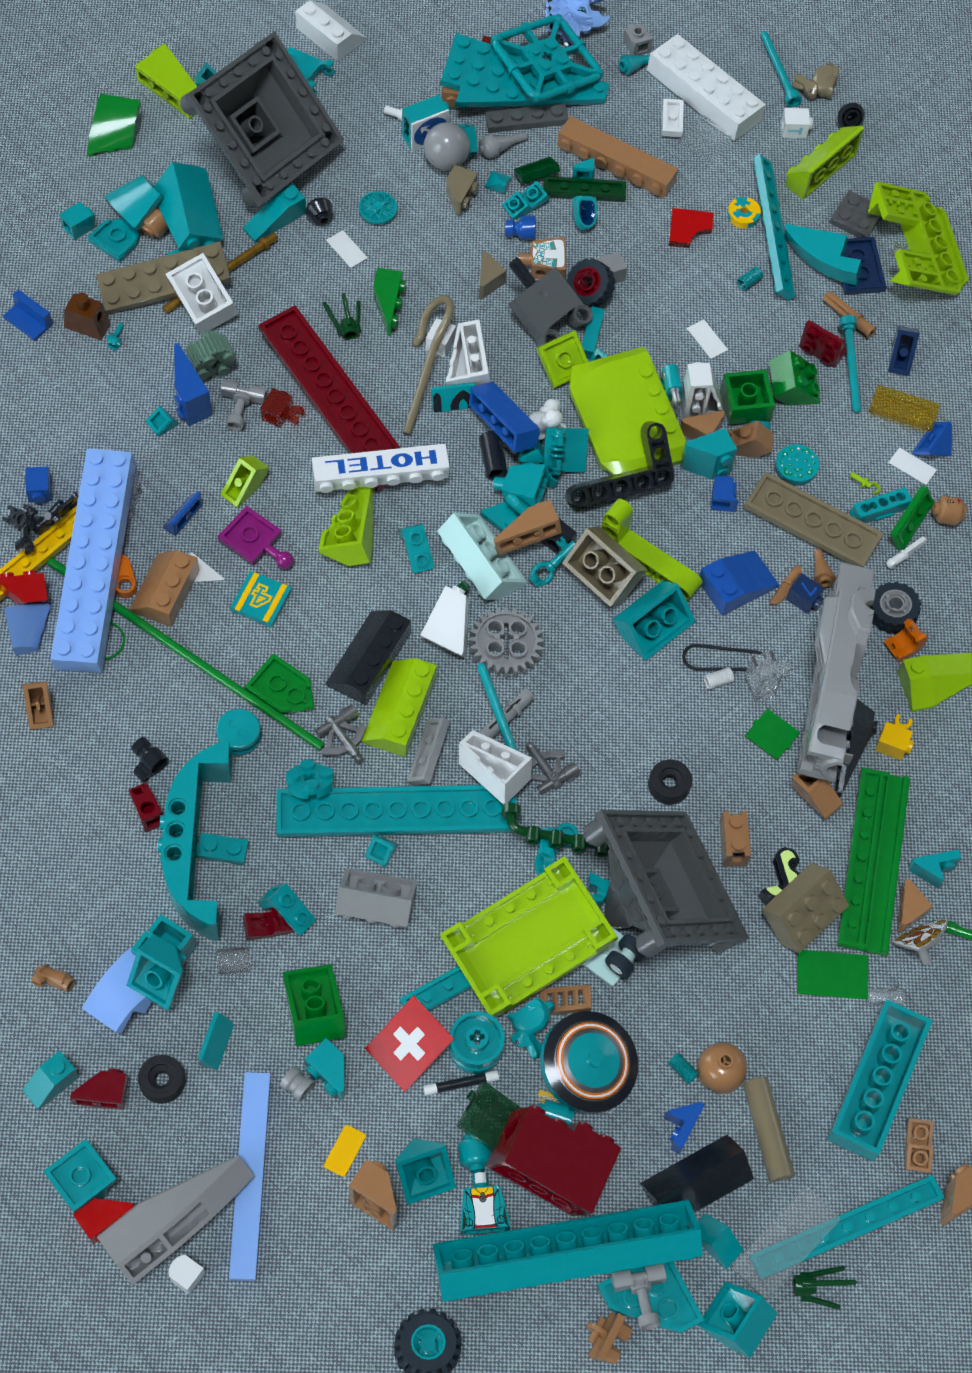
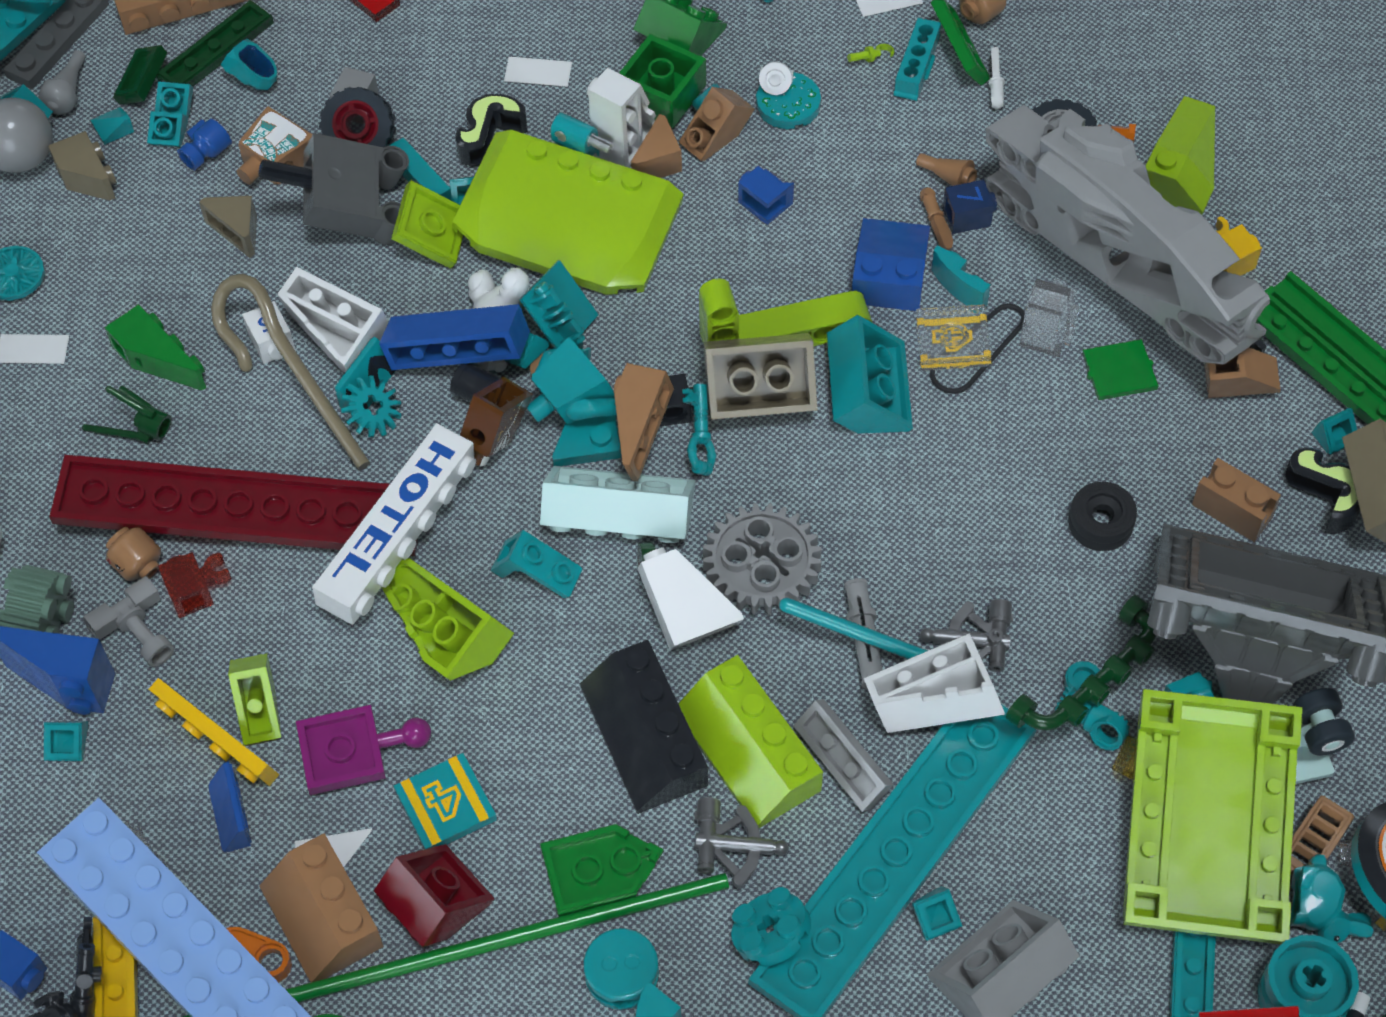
camera: 45 degrees left, 5 degrees down
(210, 626) = (432, 894): none -> dark red slope
(213, 472) = (223, 743): none -> yellow plate
(273, 374) = (133, 554): none -> medium nougat head
(430, 413) = (364, 417): none -> teal gear
(474, 466) = (494, 417): none -> reddish brown torso
(584, 169) = (193, 27): teal slope -> none
(630, 478) = (678, 242): black beam -> none
(647, 336) = (482, 118): none -> black animal
(709, 454) = (708, 166): teal slope -> none
(717, 641) = (953, 337): none -> clear tile
(722, 677) = (999, 373): white piece -> none
(756, 616) = (952, 274): none -> teal slope
(800, 448) = (775, 78): none -> white plate
(813, 520) = (877, 134): dark tan plate -> none
(828, 861) = (1332, 429): none -> teal slope

